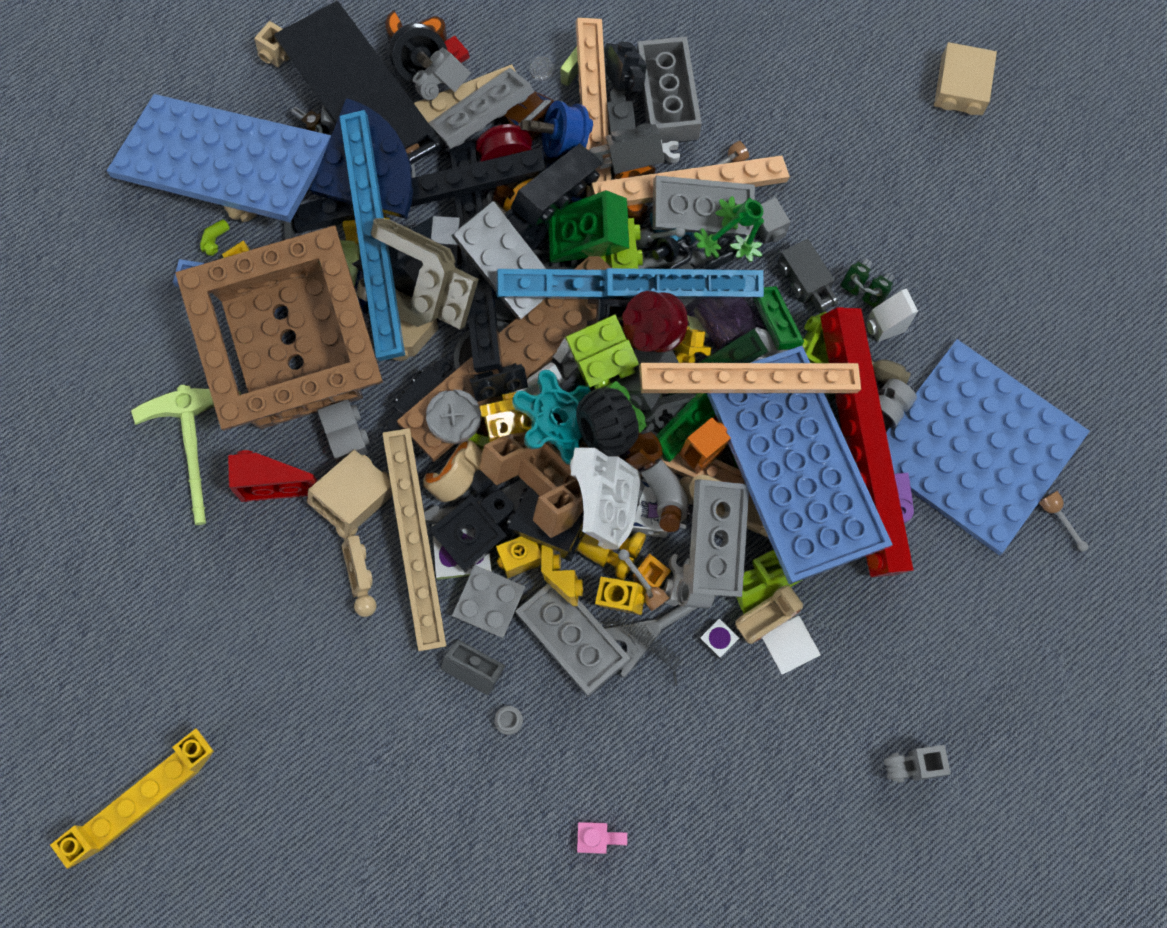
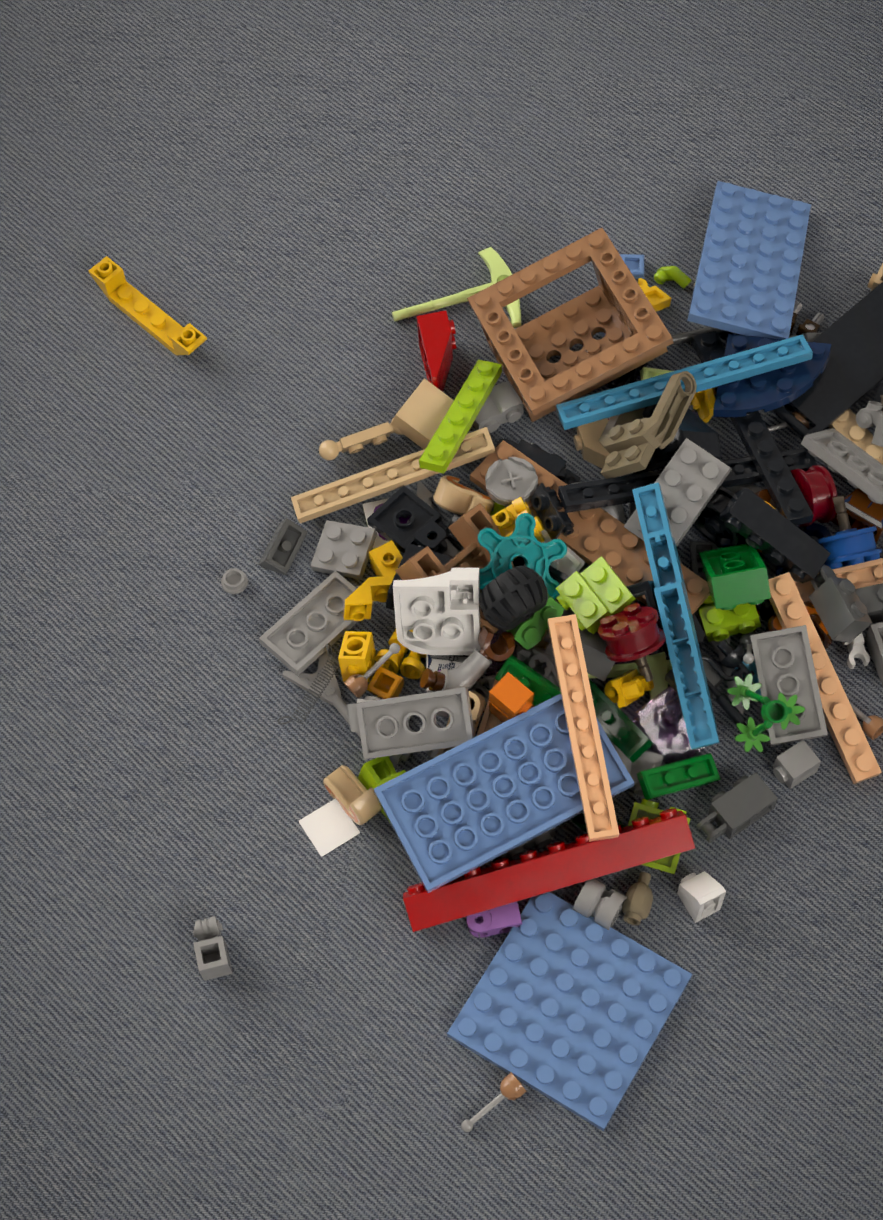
camera: 90 degrees right, 10 degrees down
(363, 457) = (460, 416): none -> lime plate
(595, 838) = (130, 667): bright pink plate -> none
(719, 638) = (327, 756): tile -> none
(856, 278) = (733, 880): dark green piece -> none

